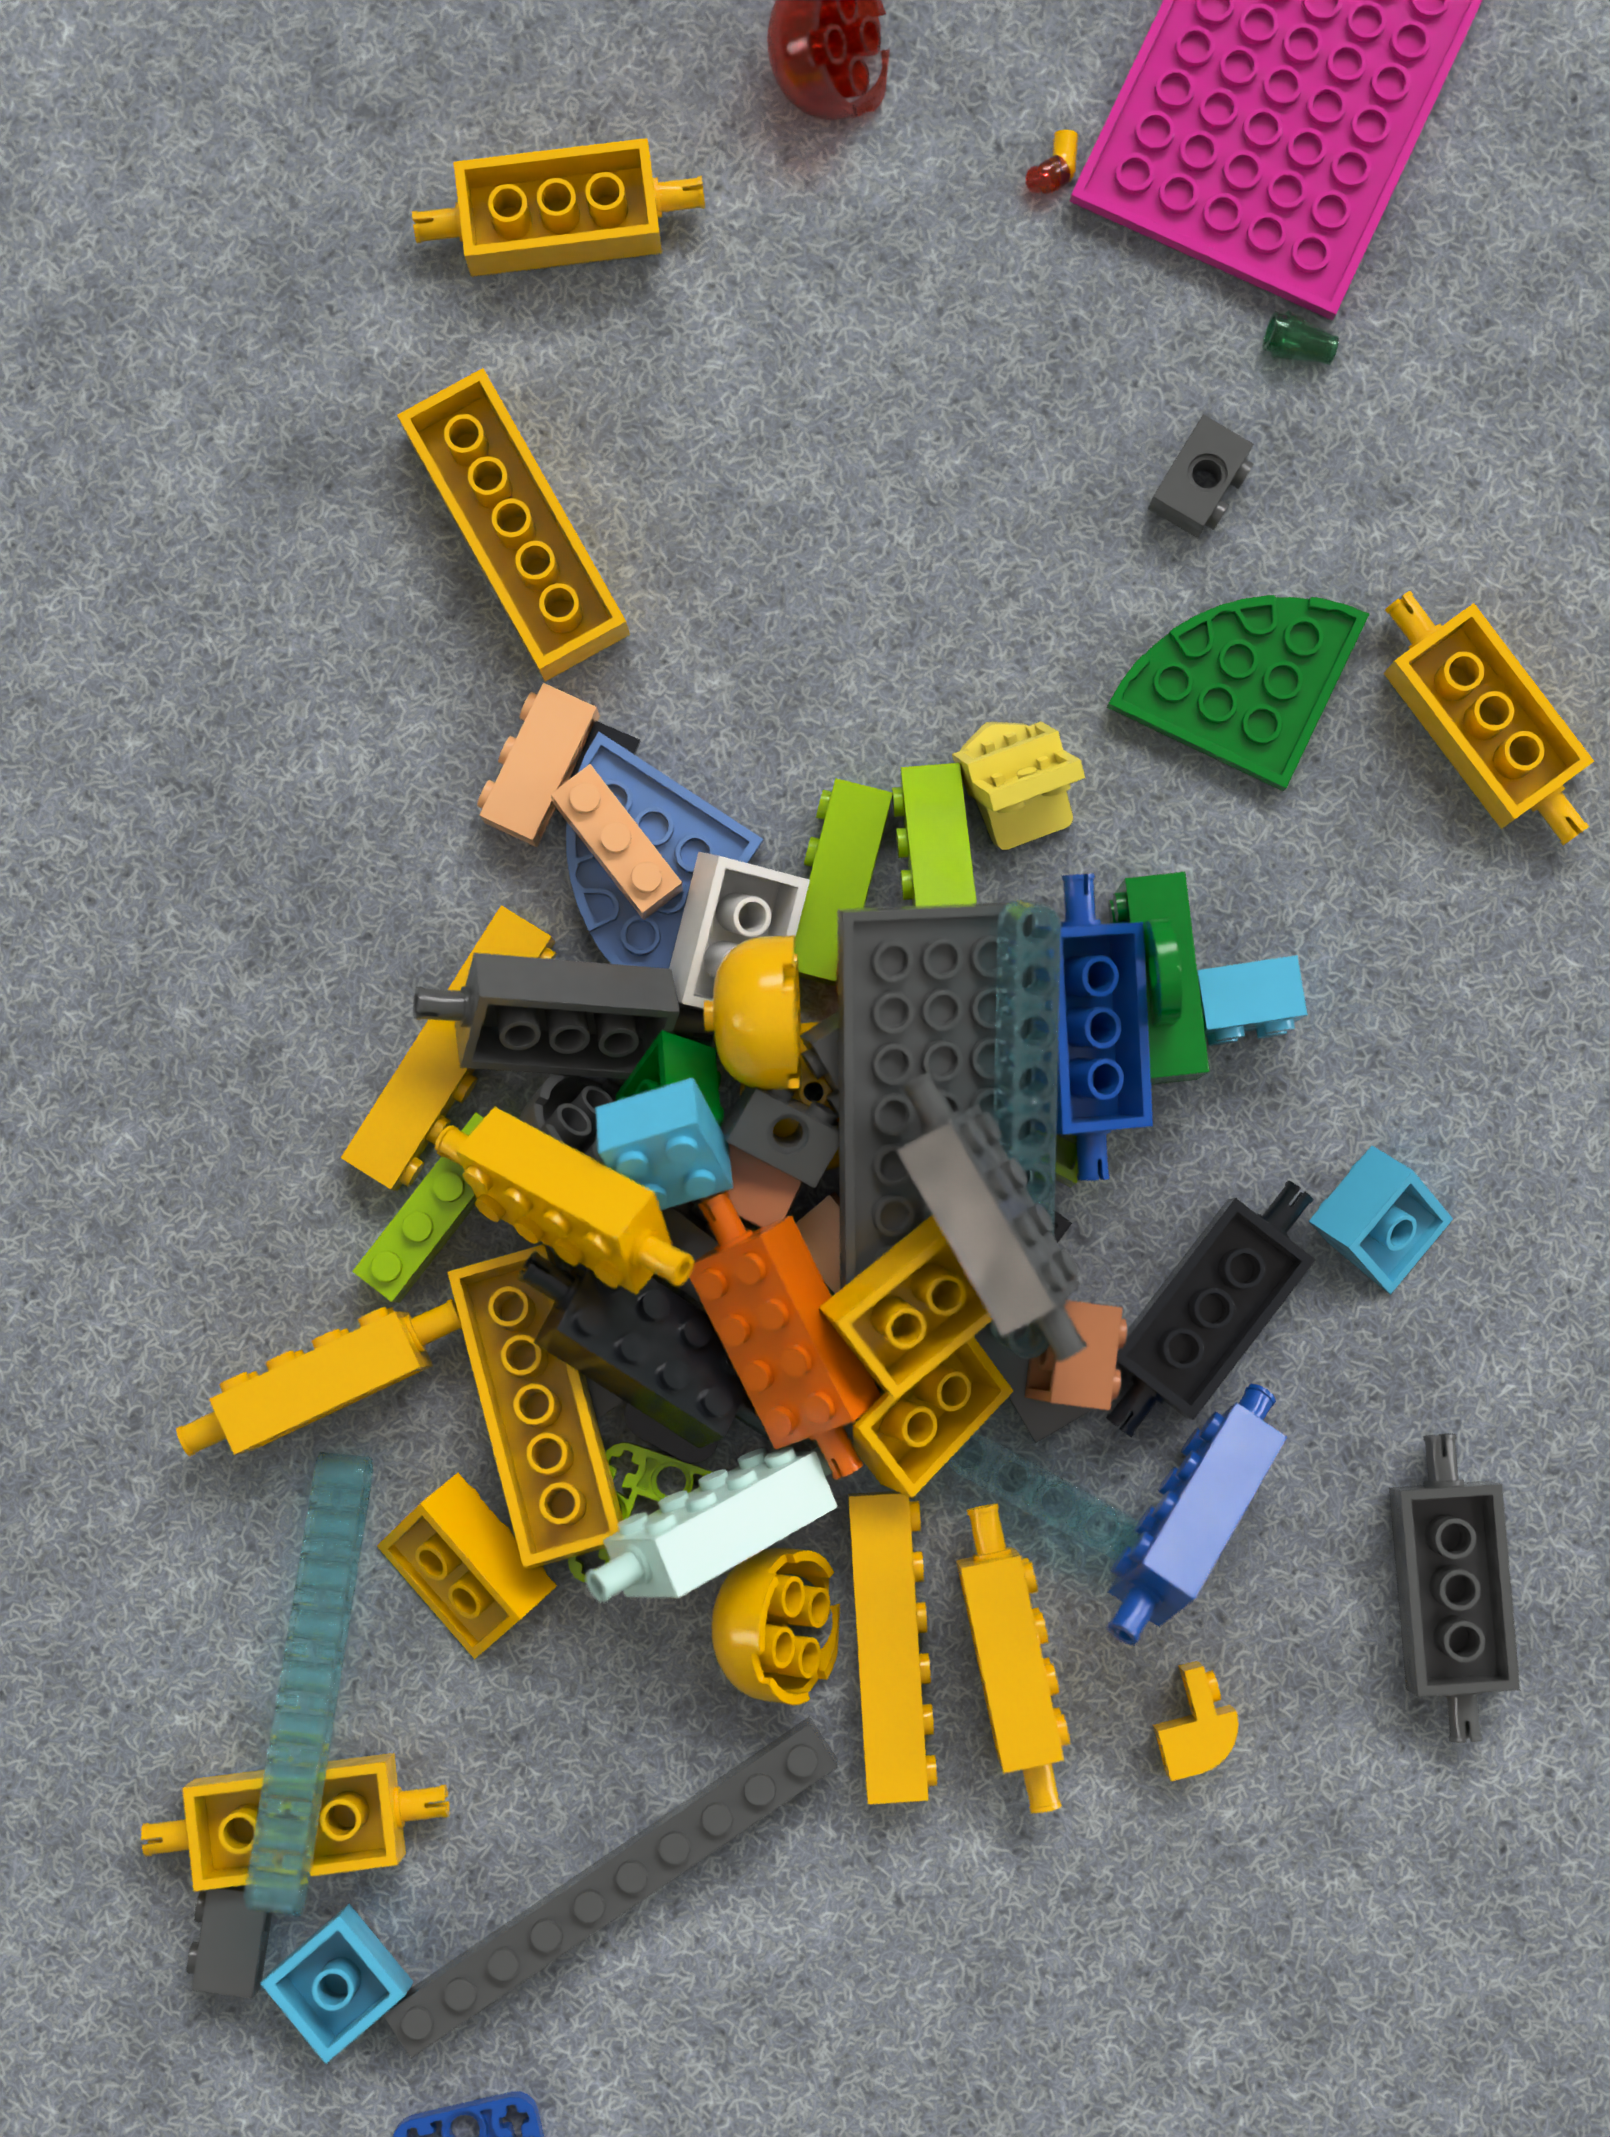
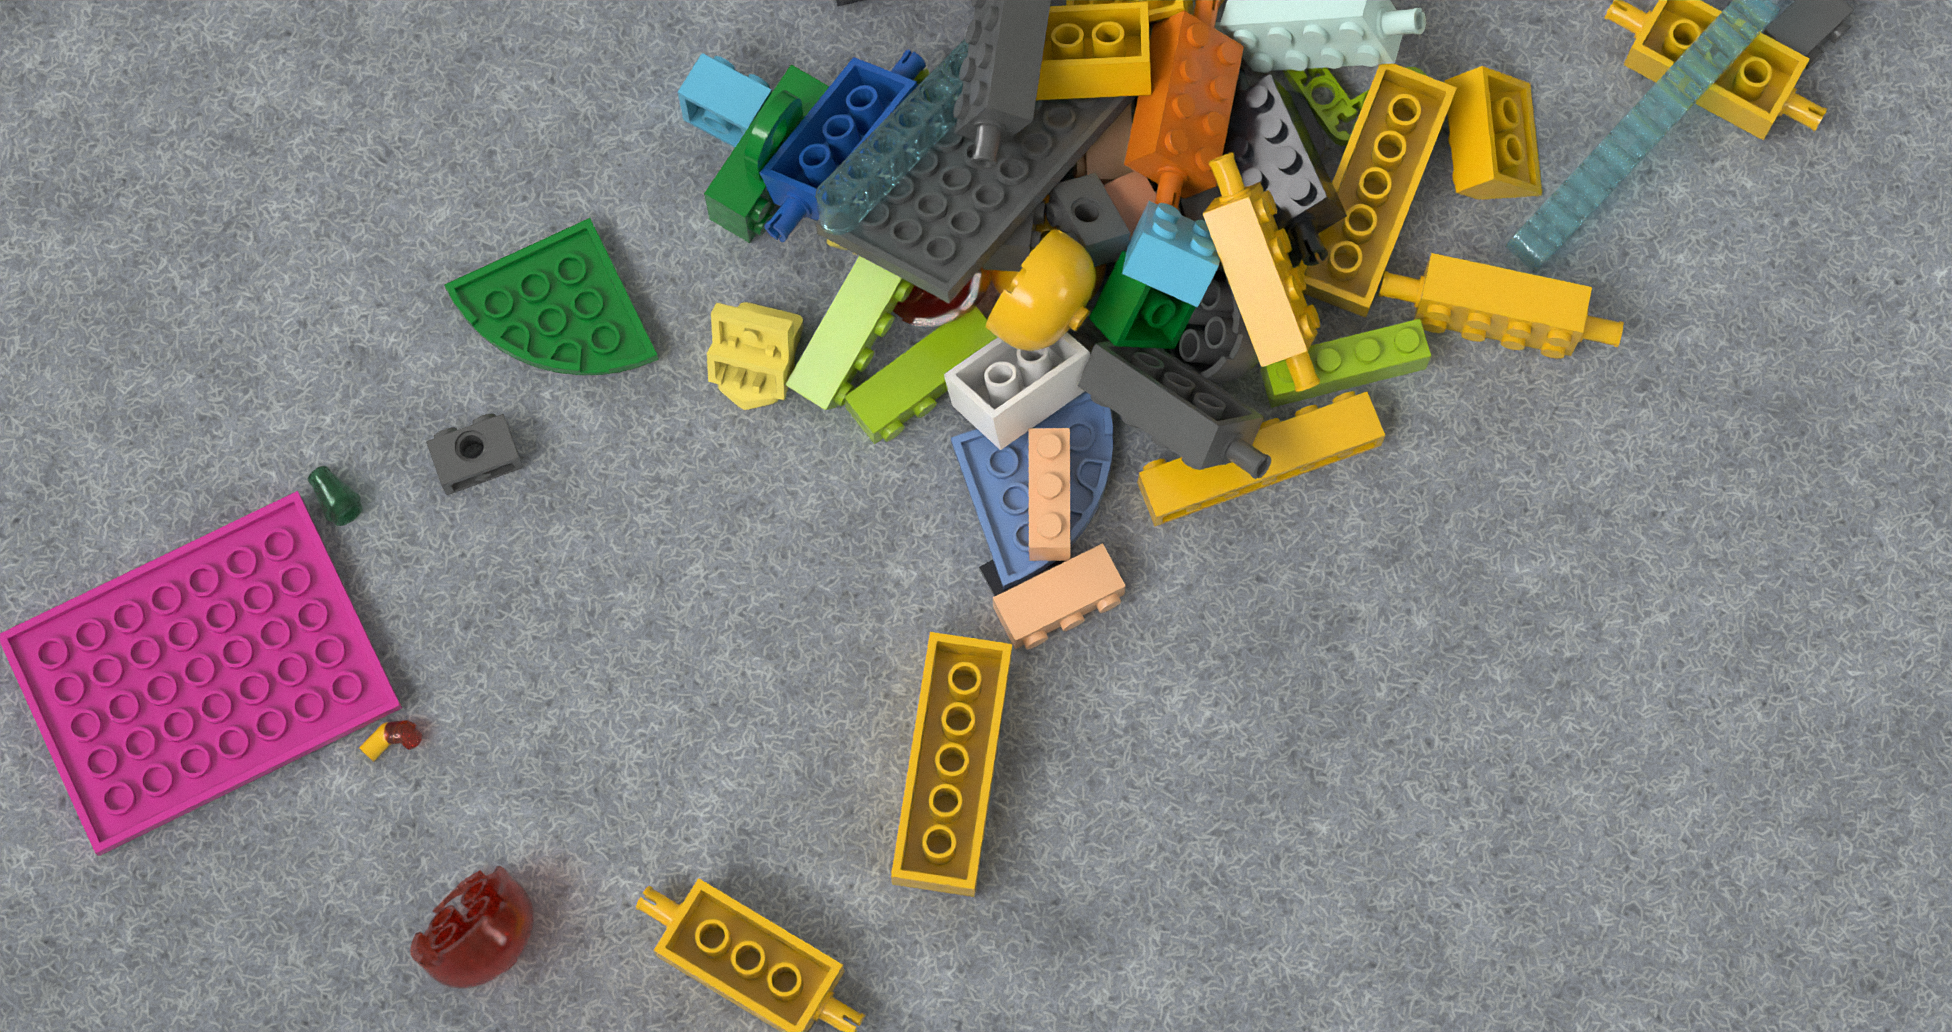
camera: 145 degrees left, 10 degrees down
(1487, 716) = (427, 163): yellow brick -> none

